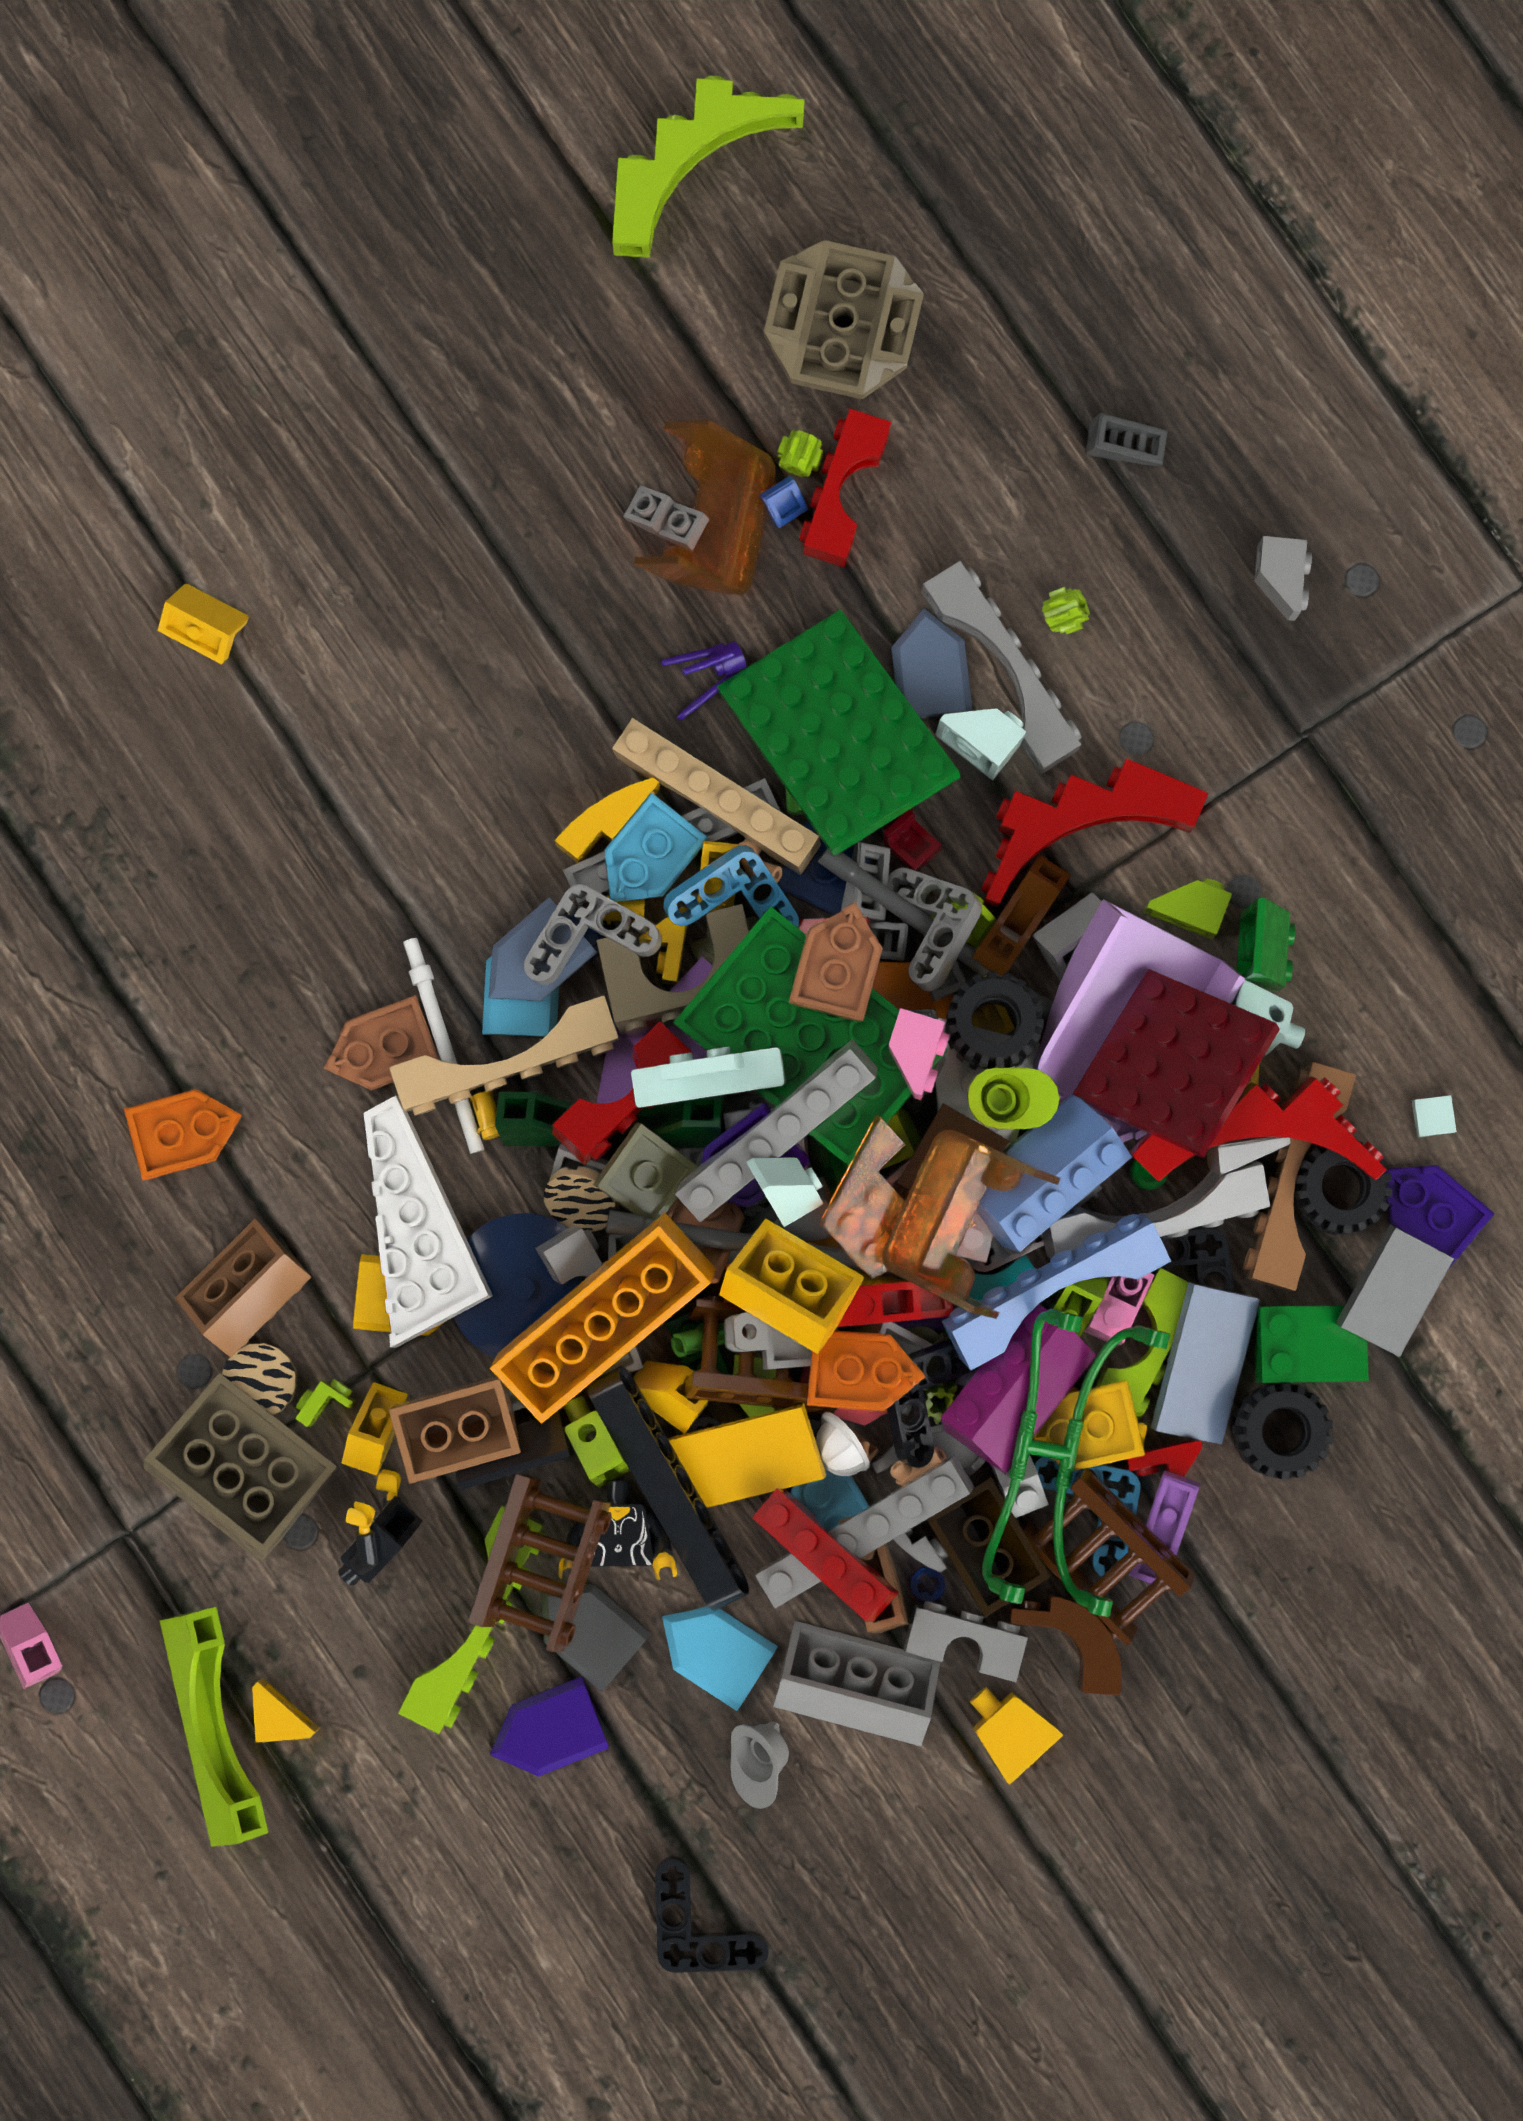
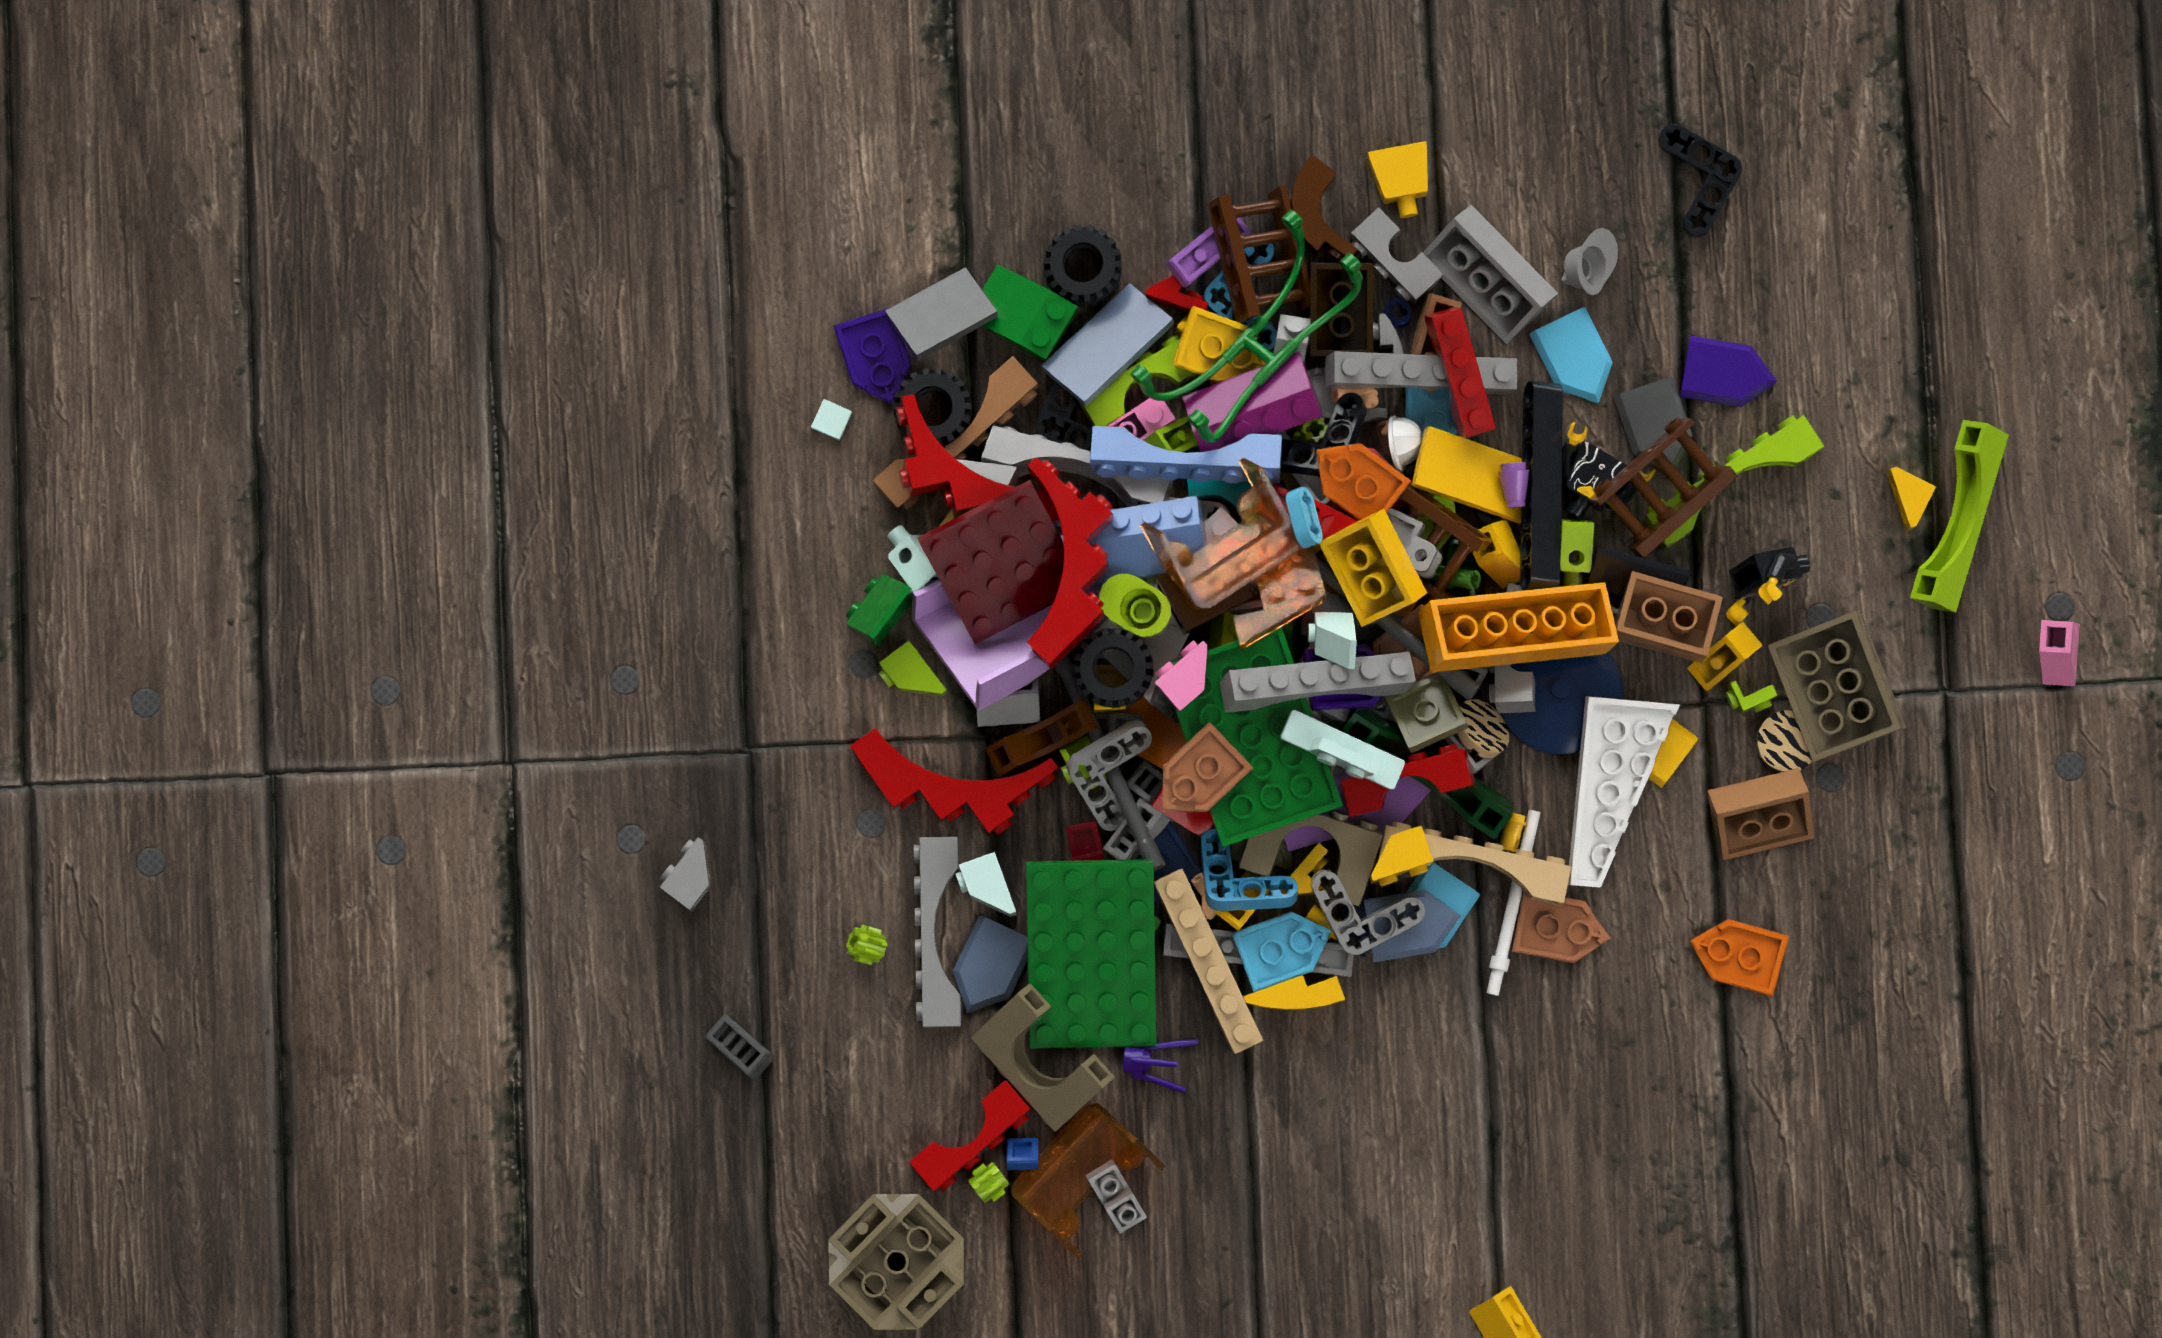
camera: 145 degrees left, 0 degrees up
(583, 1013) = (1403, 854): none -> yellow slope
(698, 1473) = (1514, 483): none -> medium lavender cone
(790, 571) = (1003, 1043): none -> dark tan arch
(895, 1293) = (1304, 517): none -> medium azure beam
(1123, 1147) = (1081, 522): none -> red arch

